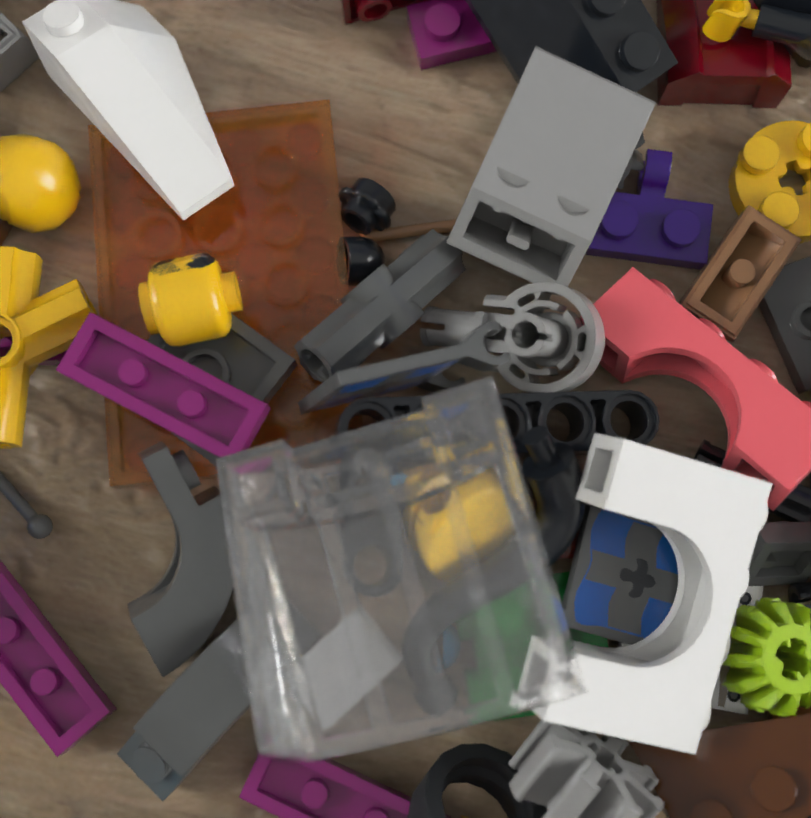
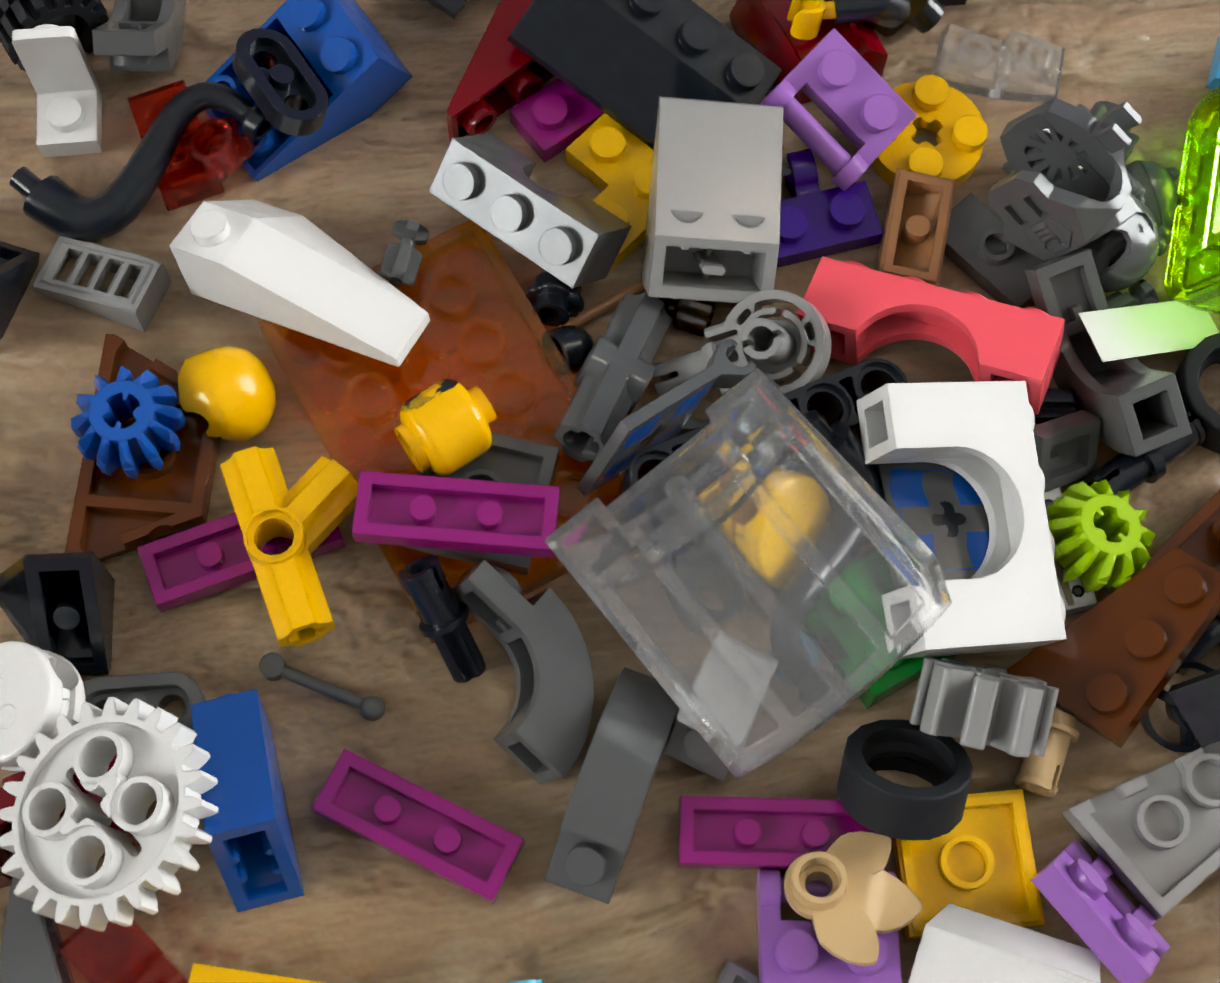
camera: 30 degrees left, 10 degrees down
(121, 477) = (443, 617): none -> black axle
(236, 115) = (401, 259): none -> dark grey piece
(394, 150) = (557, 232): none -> arch
(482, 94) = (621, 170): none -> yellow plate
(486, 275) = (690, 315): none -> dark brown piece
(734, 119) = (851, 98): none -> medium lavender plate

